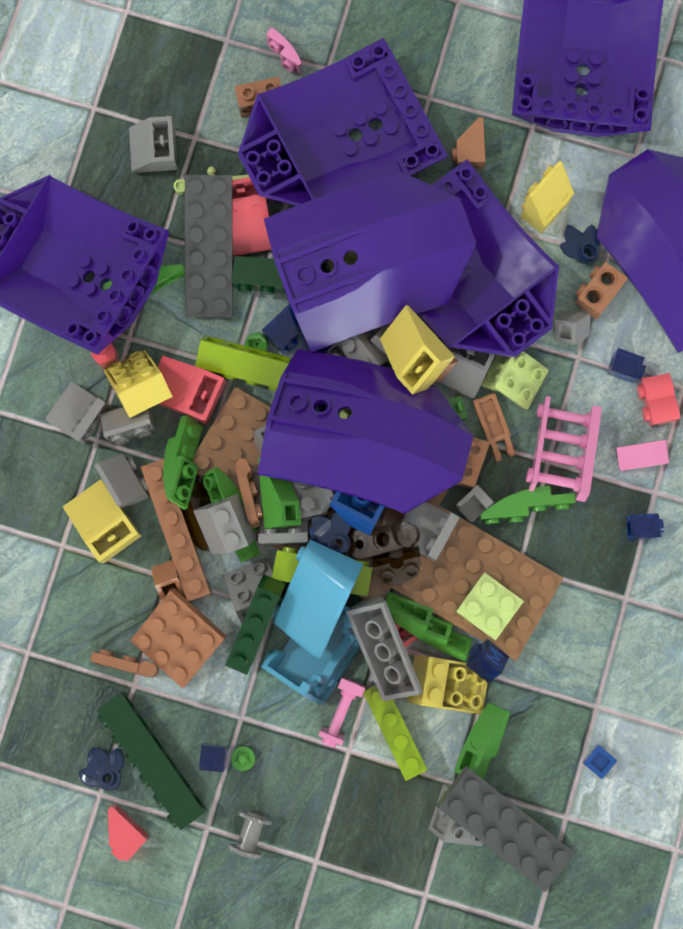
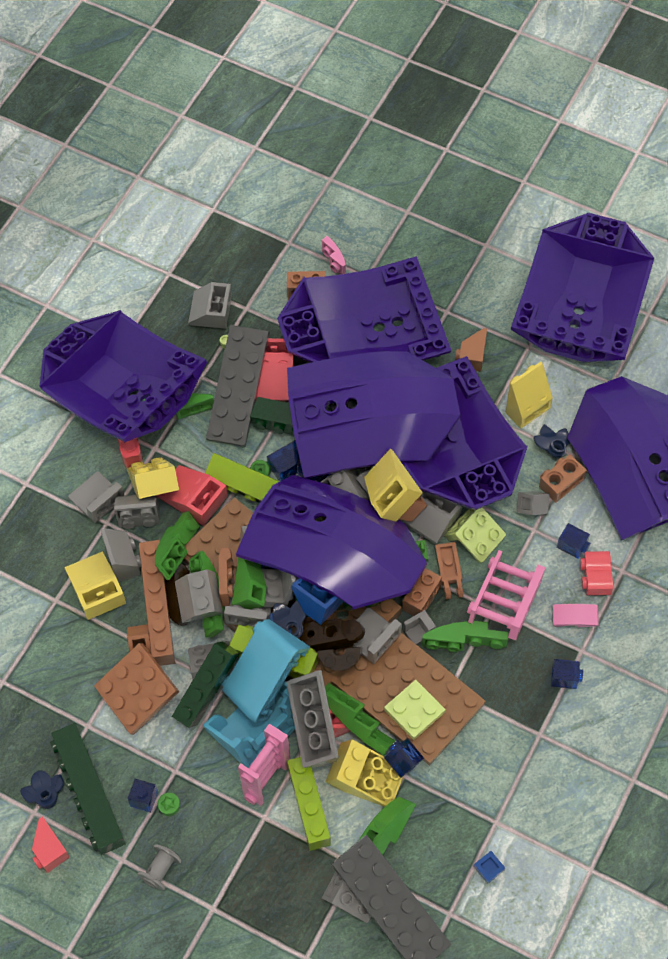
camera: 10 degrees right, 20 degrees down
(125, 664) = (84, 704): nougat hinge -> none

